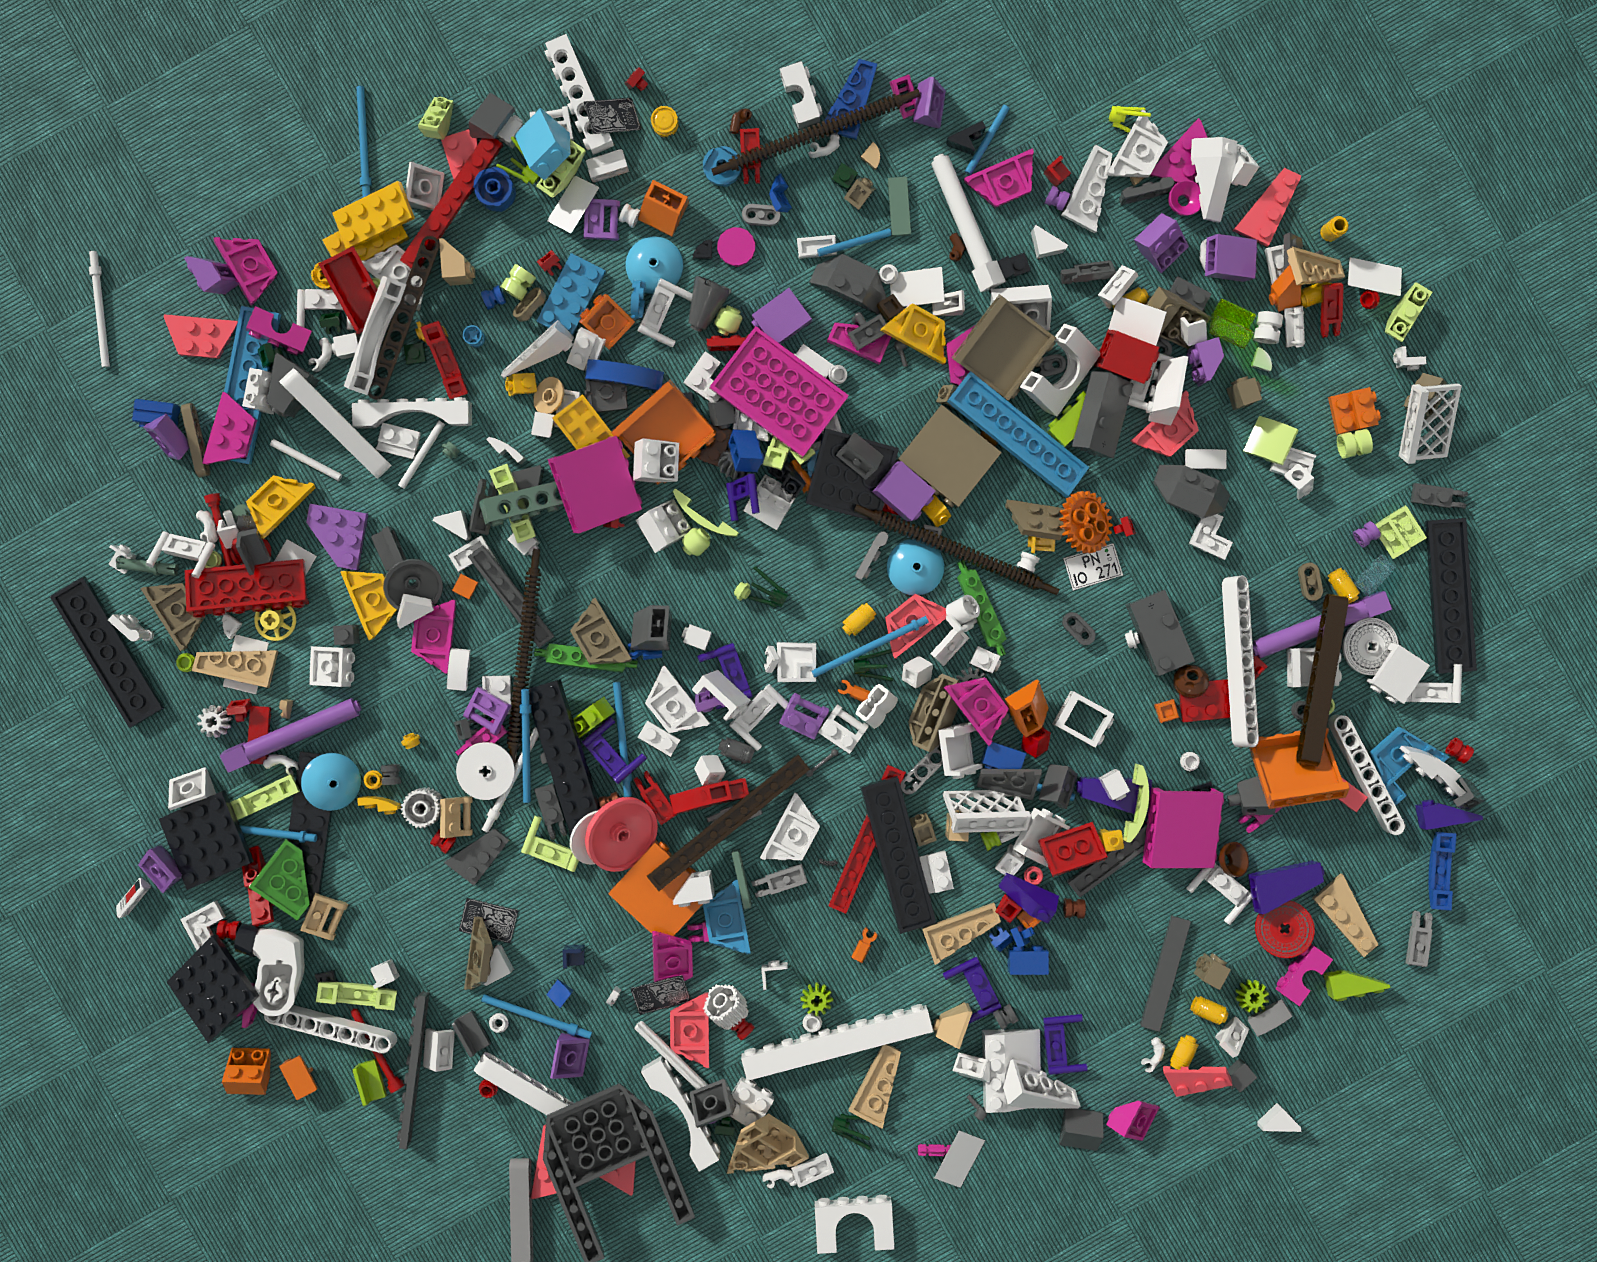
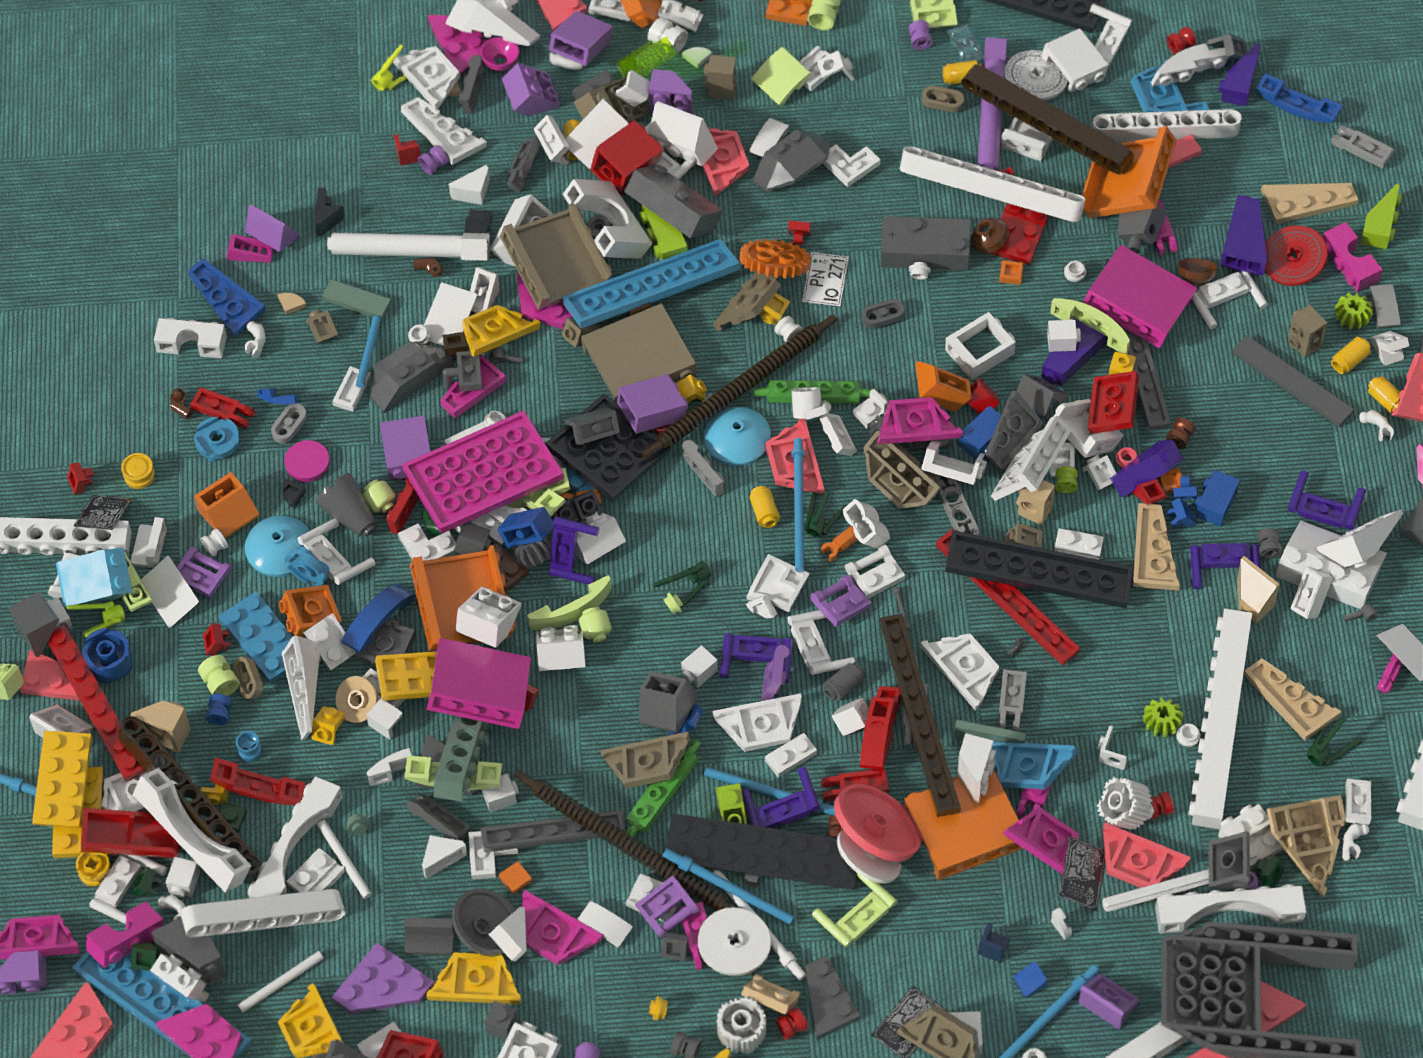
camera: 60 degrees left, 30 degrees down
(551, 809) = (812, 897): dark grey hinge -> none
(725, 692) = (767, 652): white panel -> none
(844, 176) = (296, 335): dark green plate -> none
(845, 121) = (237, 337): dark brown hose -> none
(863, 946) = (1125, 649): orange bar -> none
(917, 672) = (850, 475): white panel -> none
(987, 139) = (337, 198): dark azure bar -> none
(1004, 180) = (387, 198): dark pink wing -> none
(1294, 709) = (1070, 162): dark grey plate -> none

